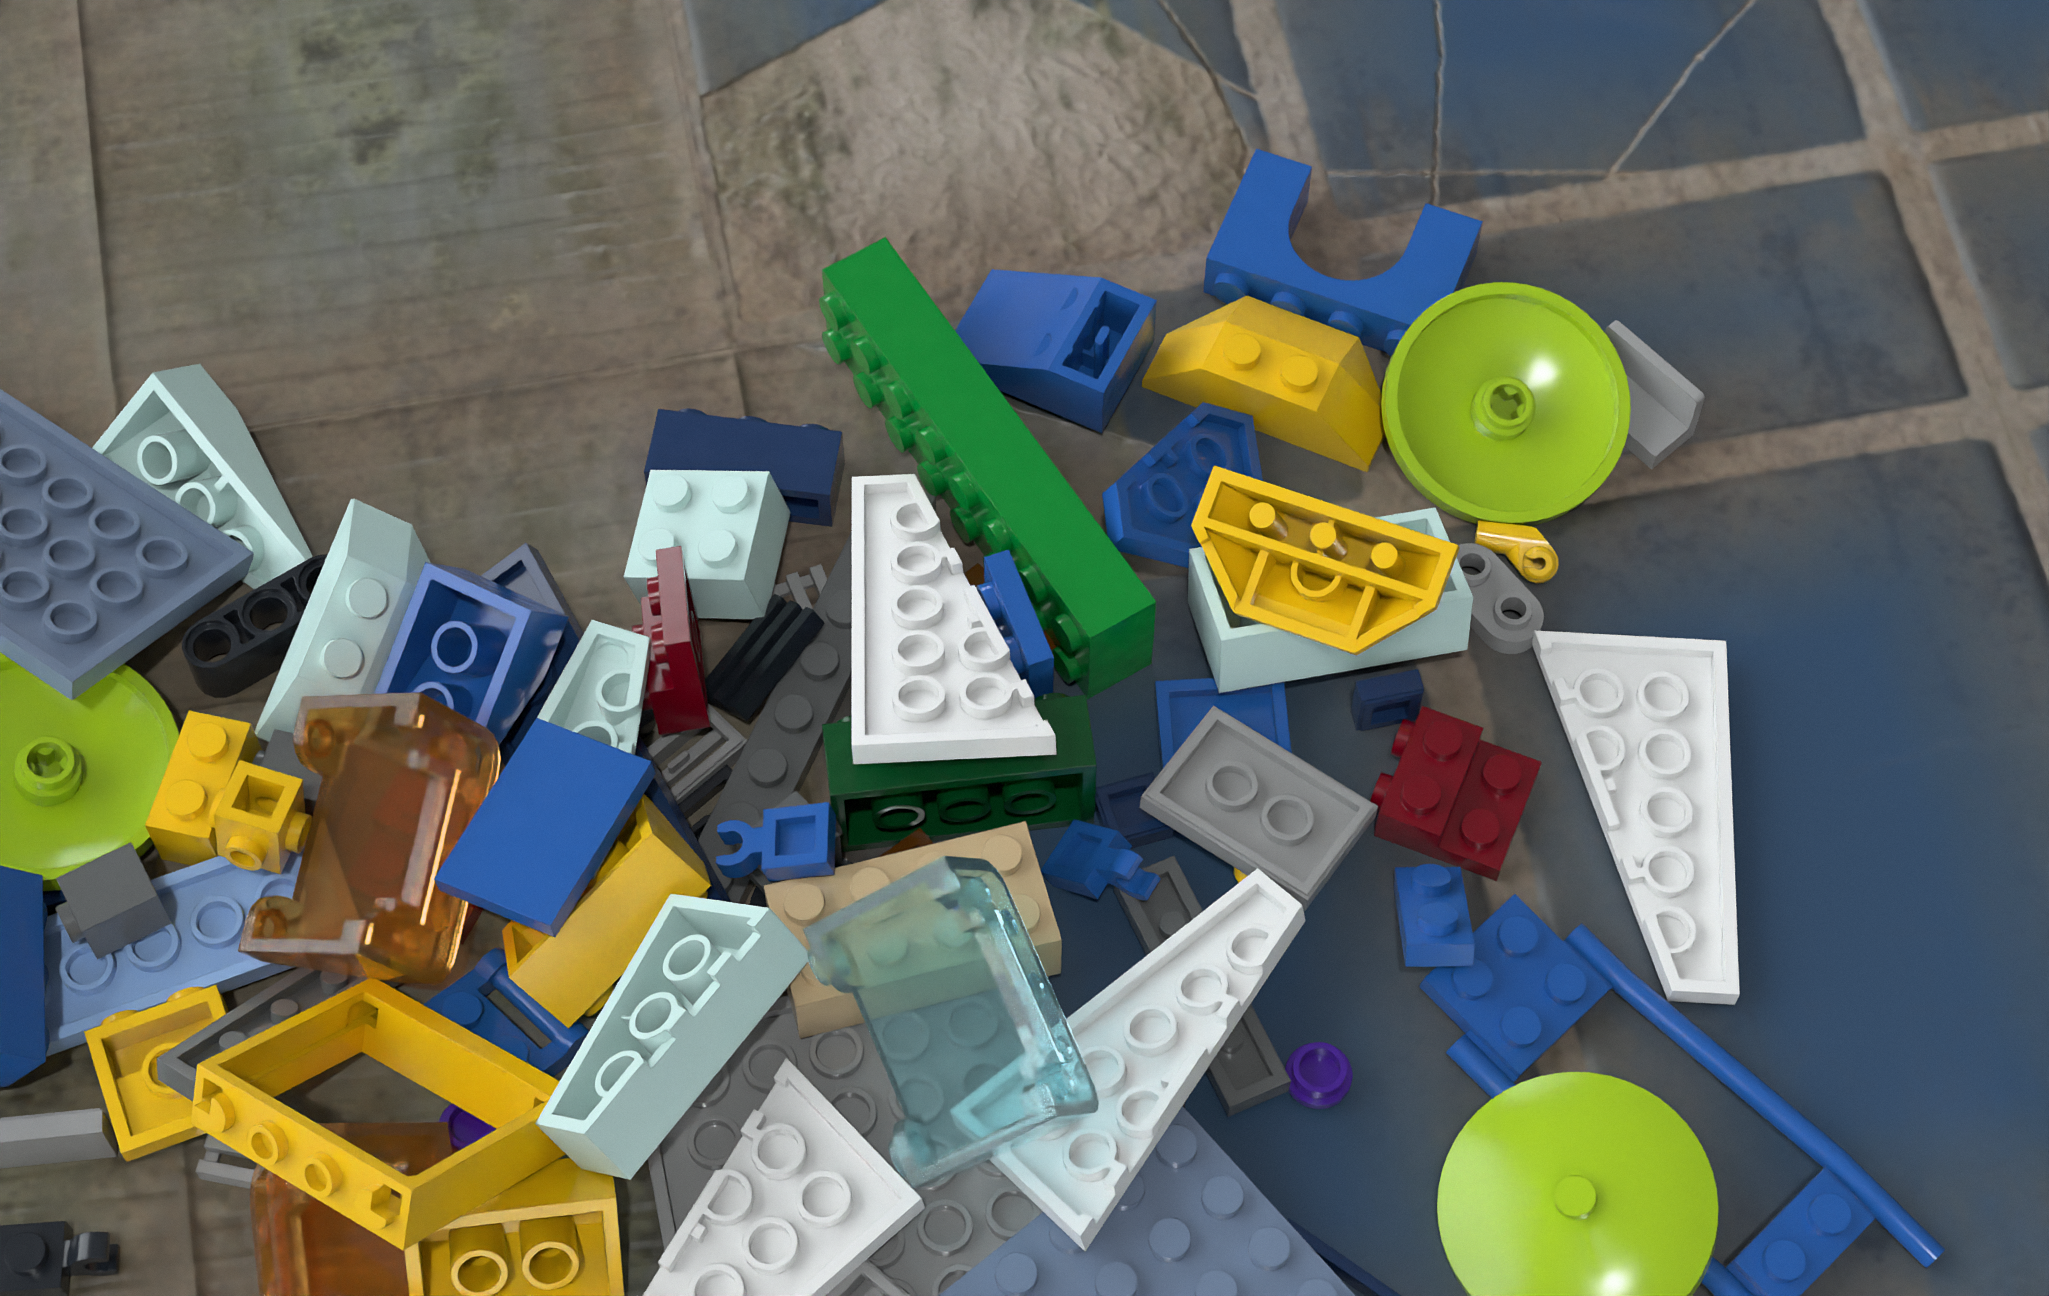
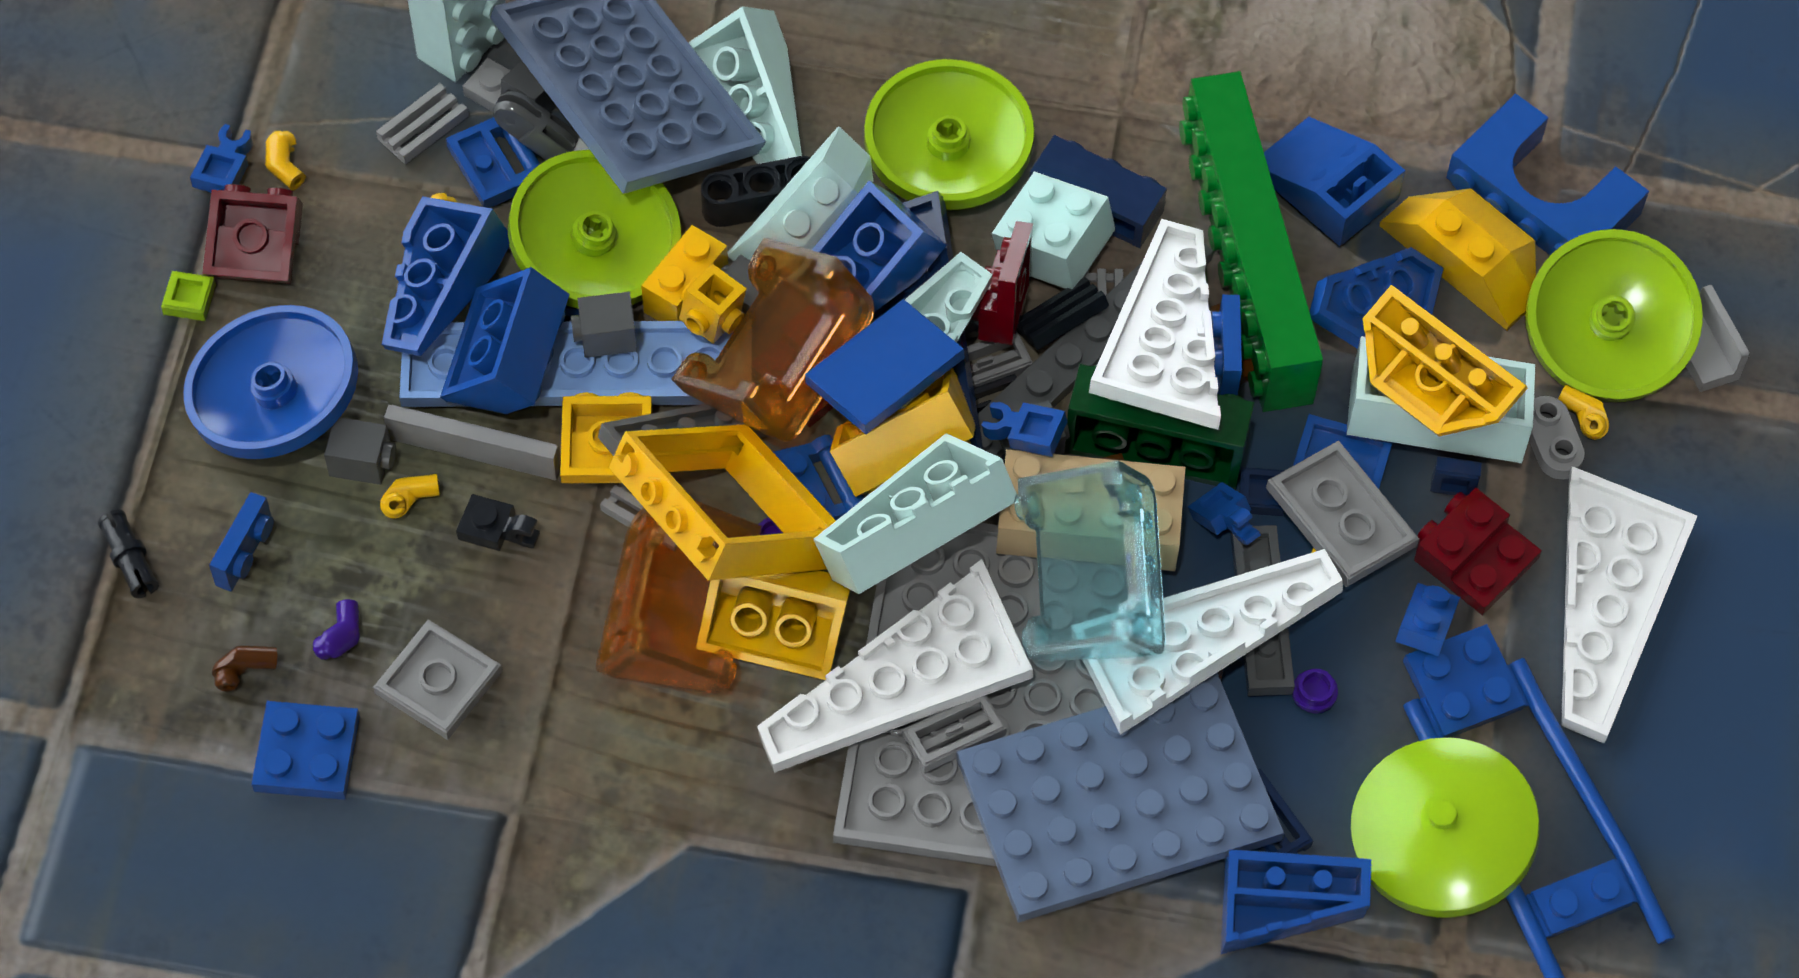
camera: 20 degrees right, 0 degrees up
(510, 455) = (949, 132): none -> lime dish

